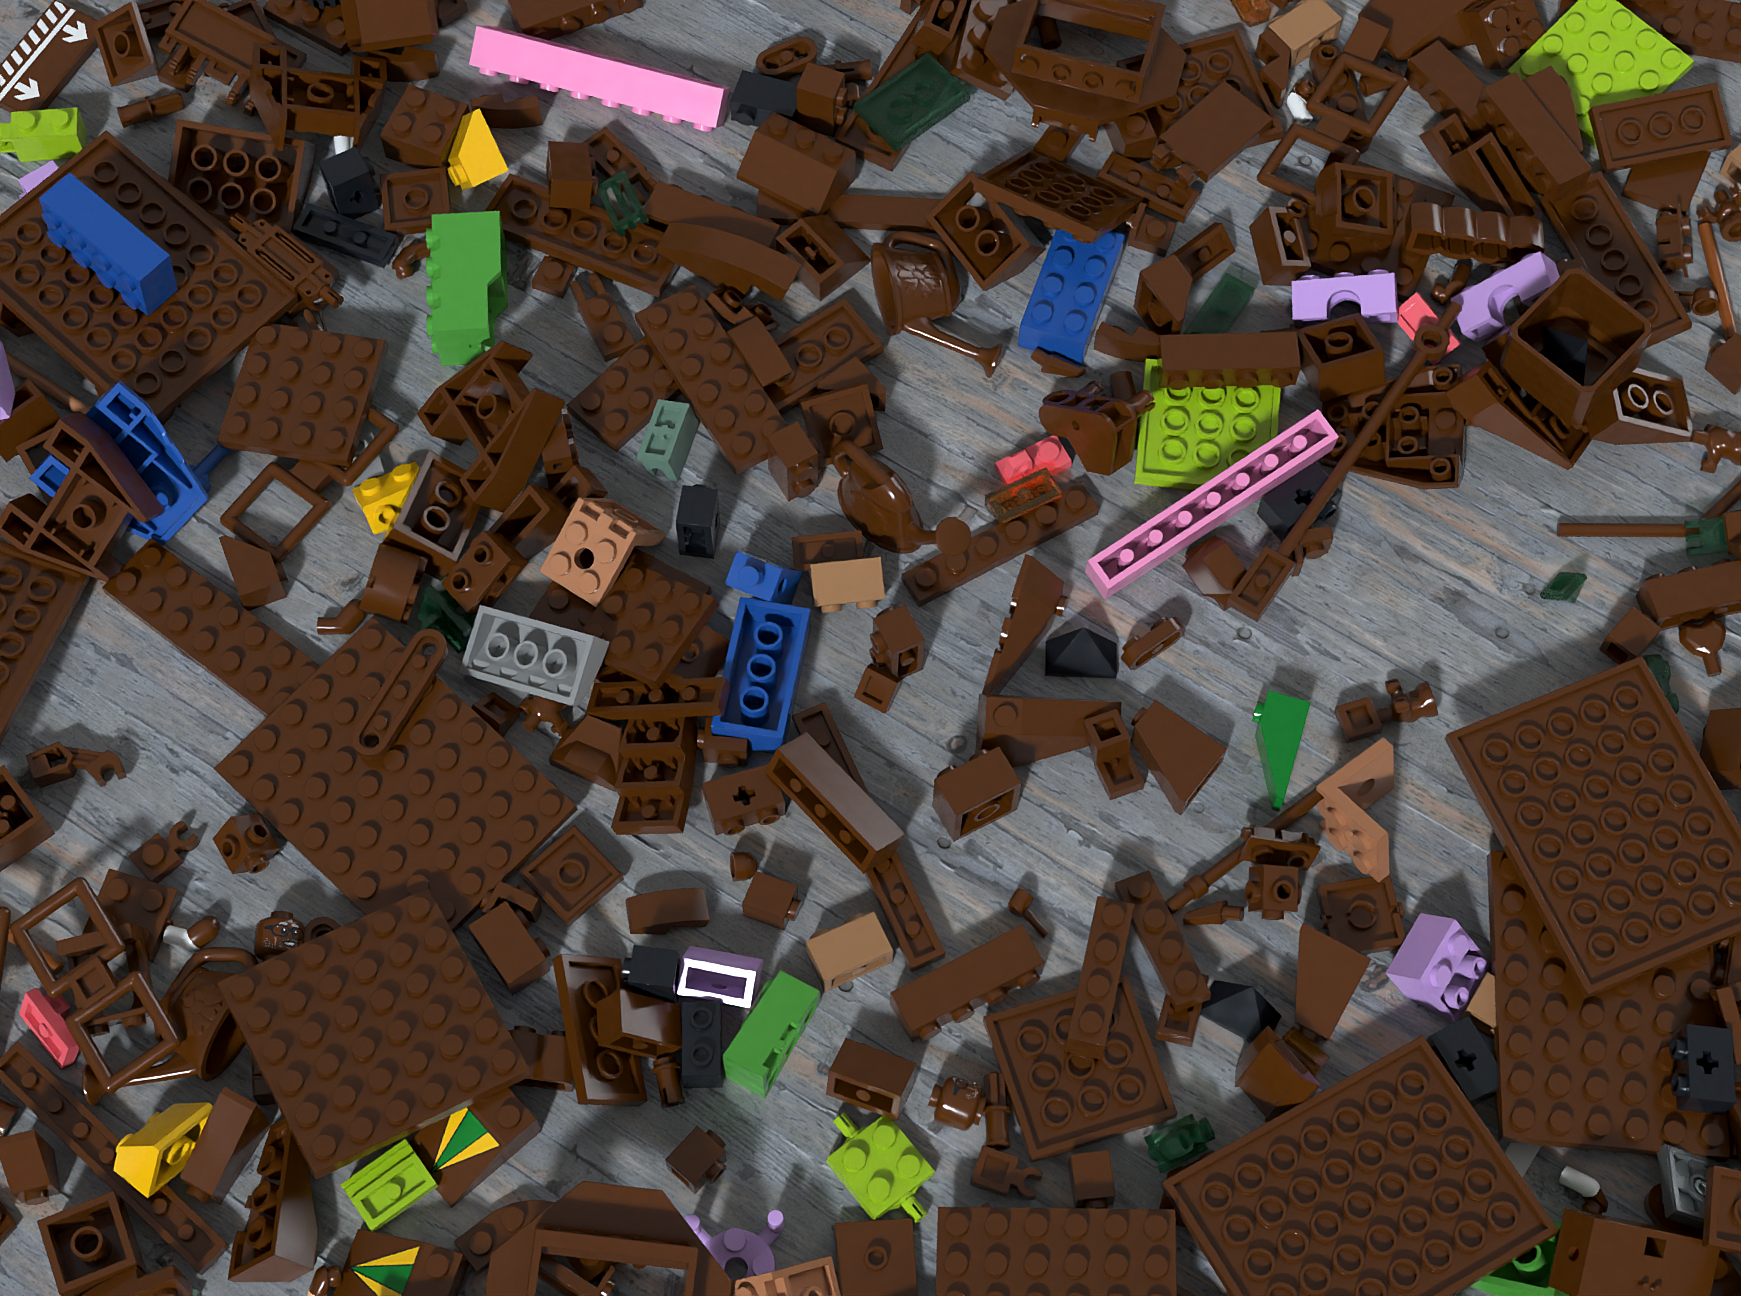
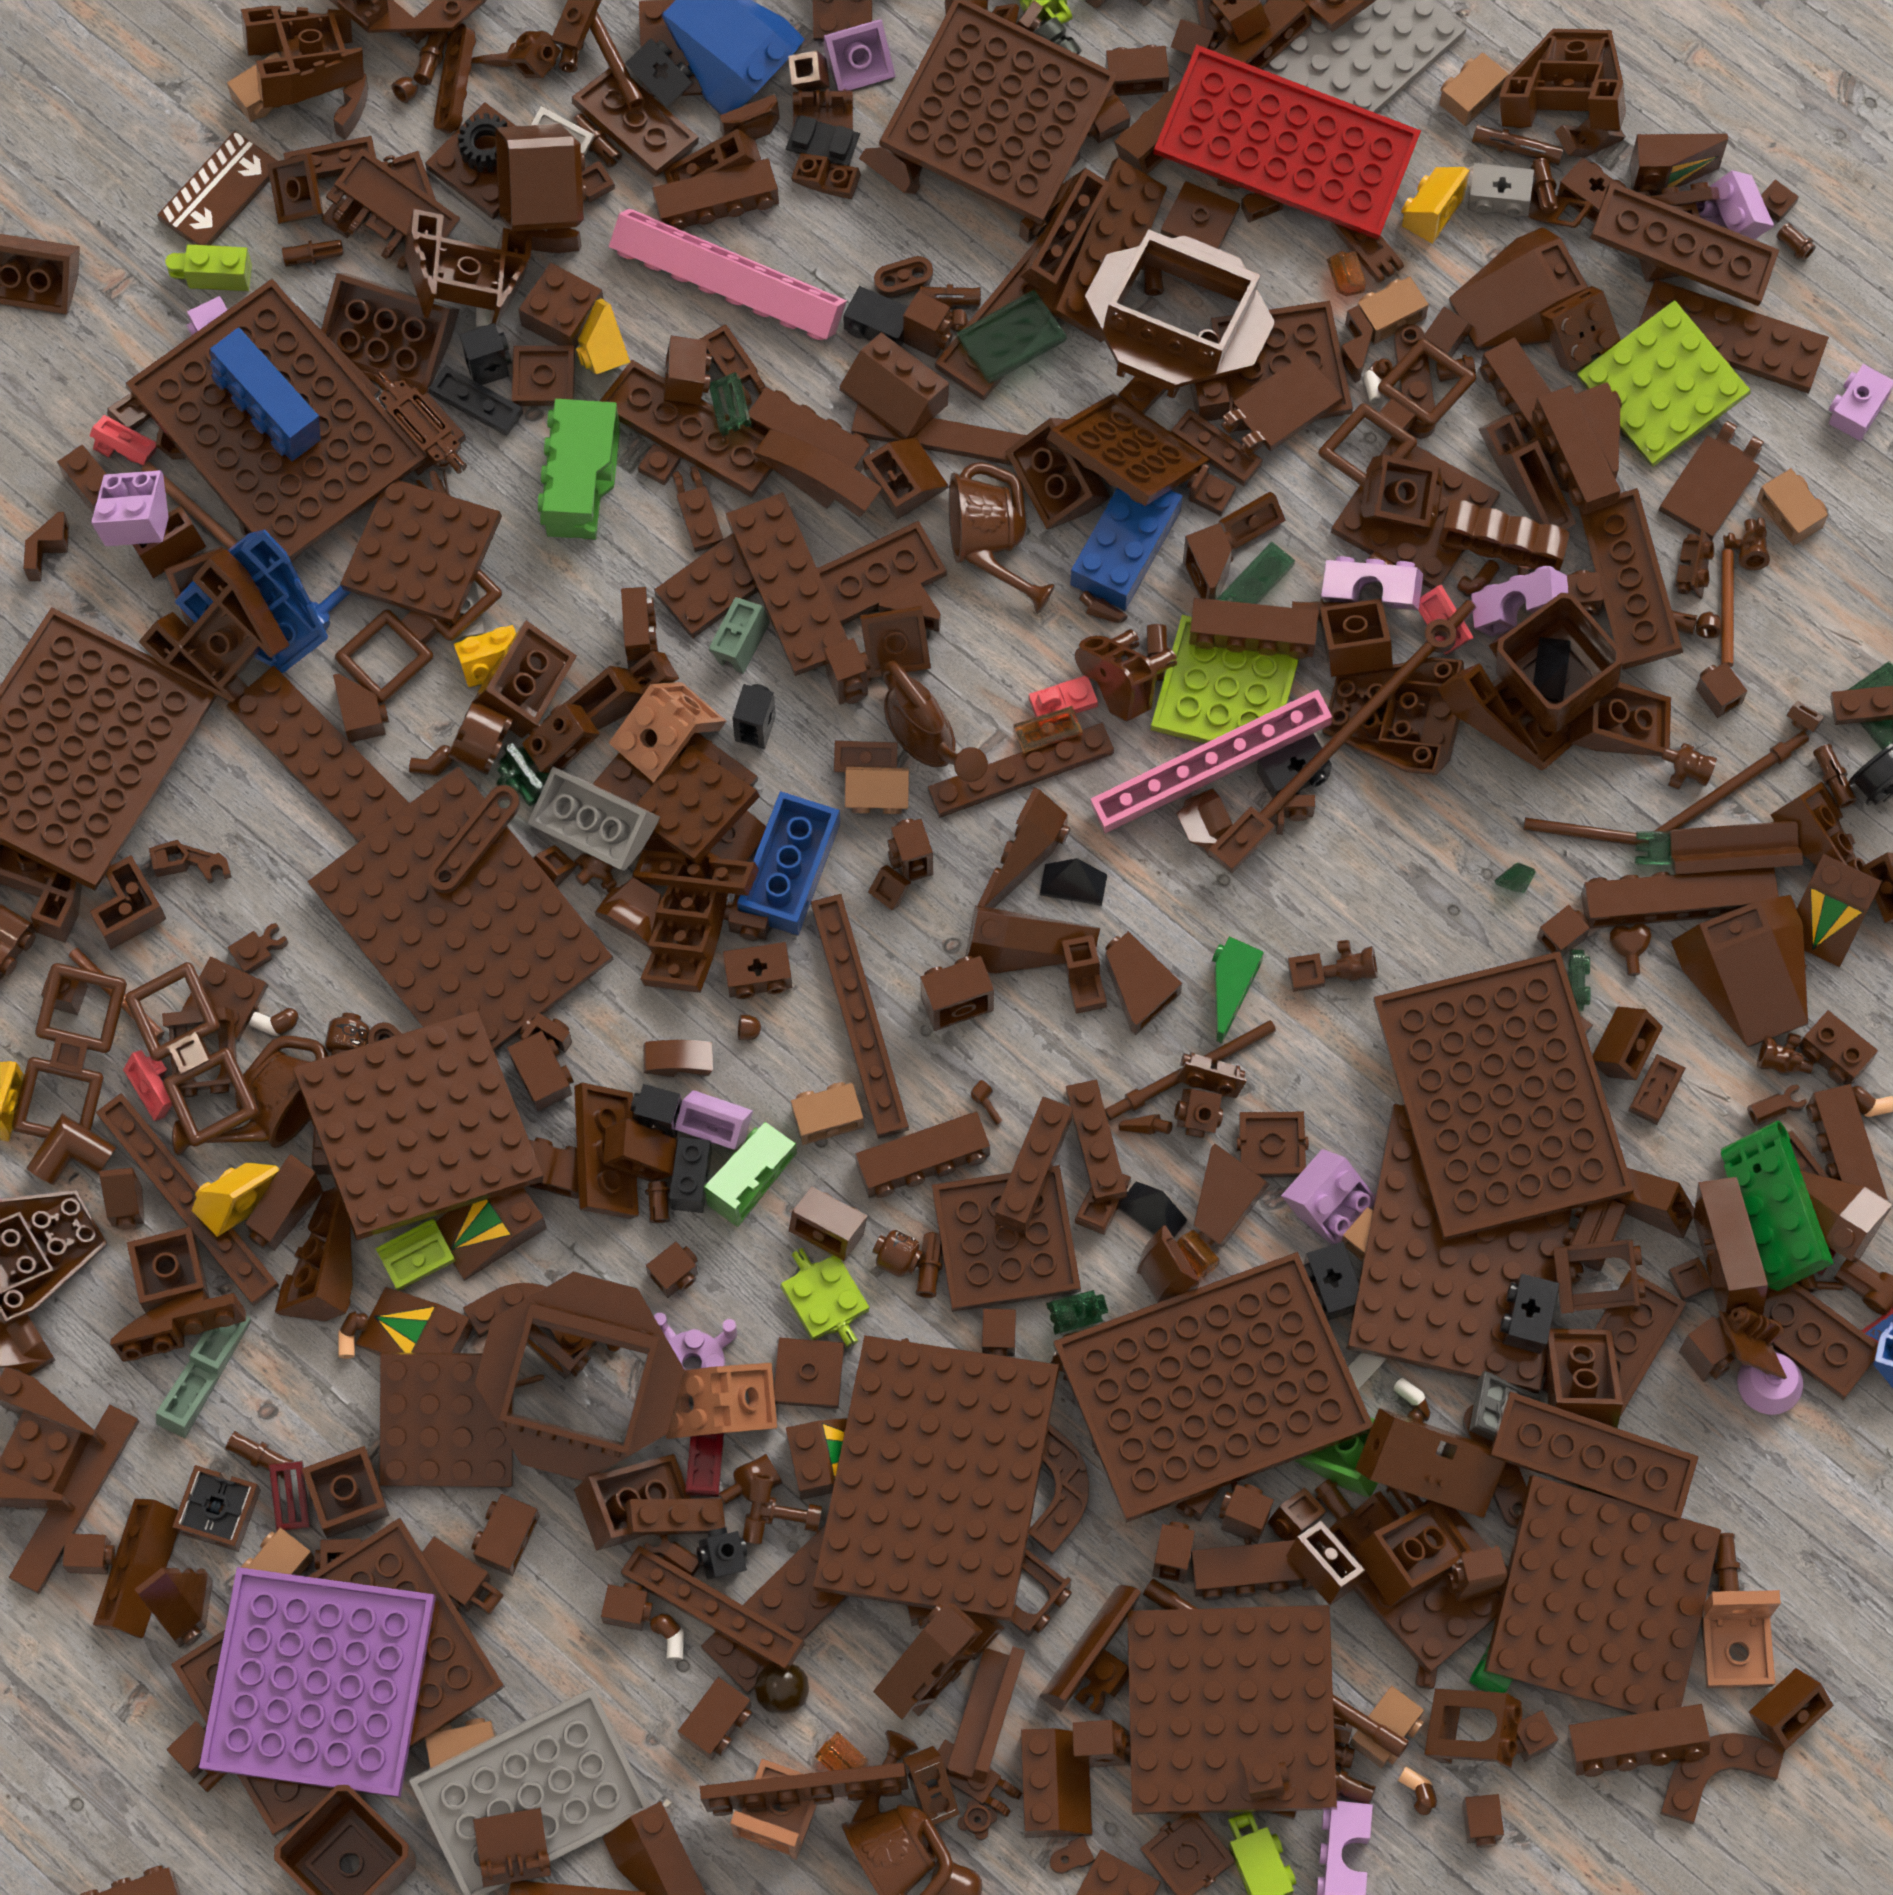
camera: 10 degrees right, 5 degrees up
(246, 843) = (328, 951): reddish brown brick -> none
(408, 255) = (528, 429): reddish brown arm -> none
(499, 417) = (591, 600): reddish brown wedge -> none
(509, 115) = (624, 296): reddish brown slope -> none
(571, 875) = (600, 1016): reddish brown plate -> none
(730, 307) = (831, 529): reddish brown slope -> none
(760, 351) = (832, 564): reddish brown slope -> none
(762, 577) = (801, 772): blue torso -> none
(771, 901) = (767, 1061): reddish brown brick -> none
(835, 802) = (833, 984): reddish brown brick -> none
(998, 1172) = (923, 1314): reddish brown plate -> none
(1120, 344) = (1159, 595): reddish brown slope -> none
(1161, 637) = (1148, 874): reddish brown plate -> none
(1280, 244) = (1326, 520): reddish brown hinge -> none
(1343, 806) = (1282, 1037): nougat bracket -> none
(1660, 127) = (1703, 452): reddish brown plate -> none

